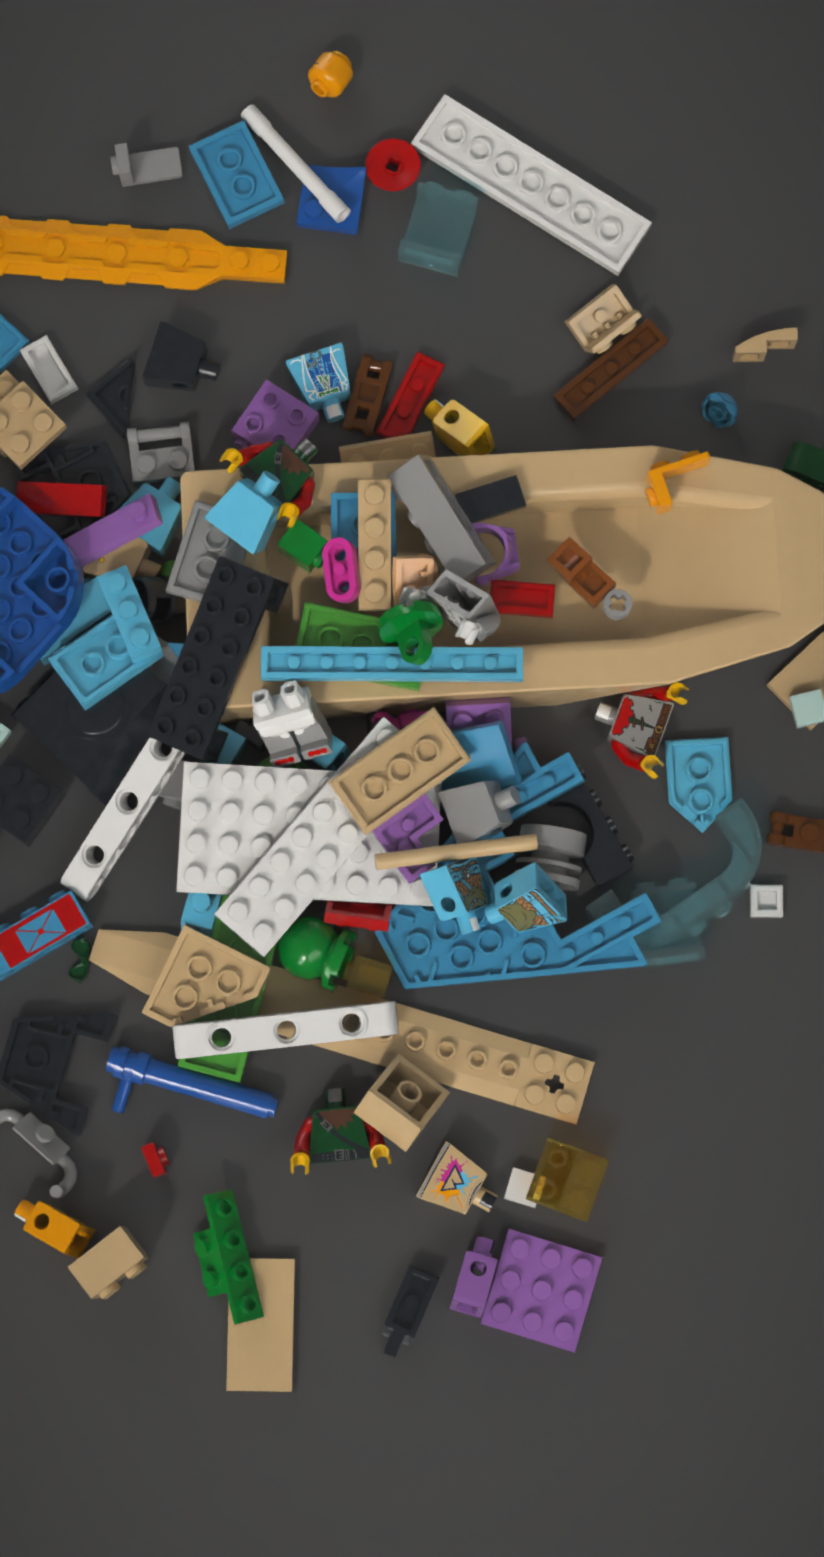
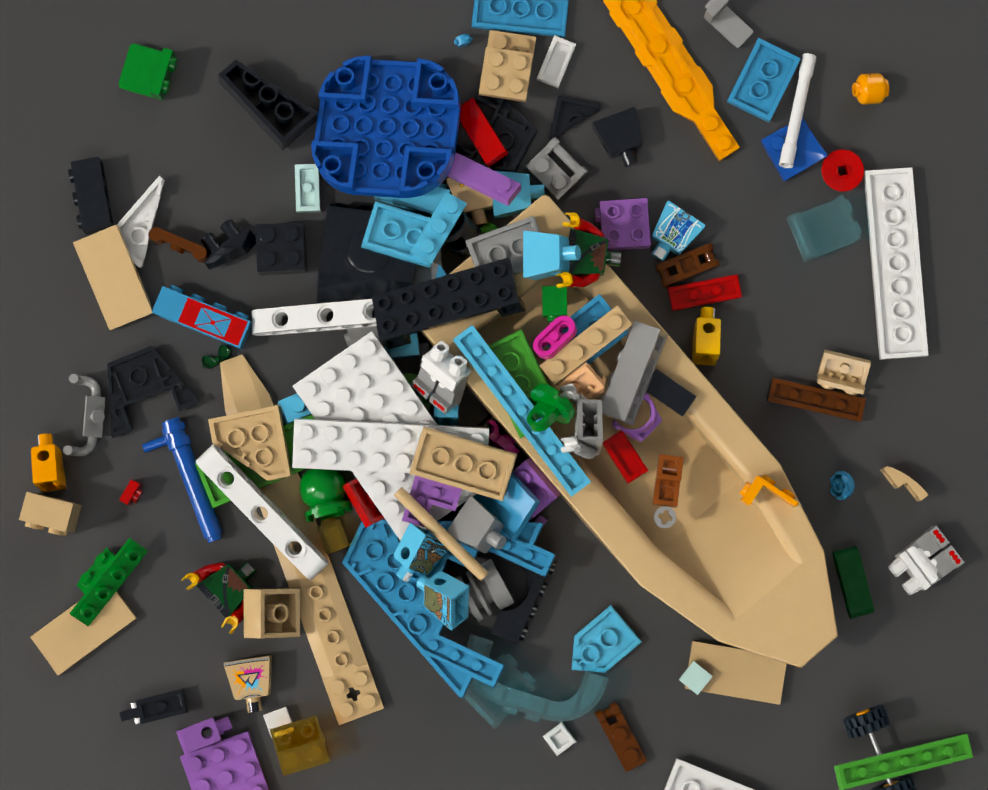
camera: 55 degrees right, 5 degrees up
(390, 448) = (660, 306): tan plate -> none
(640, 724) = (605, 584): torso -> none

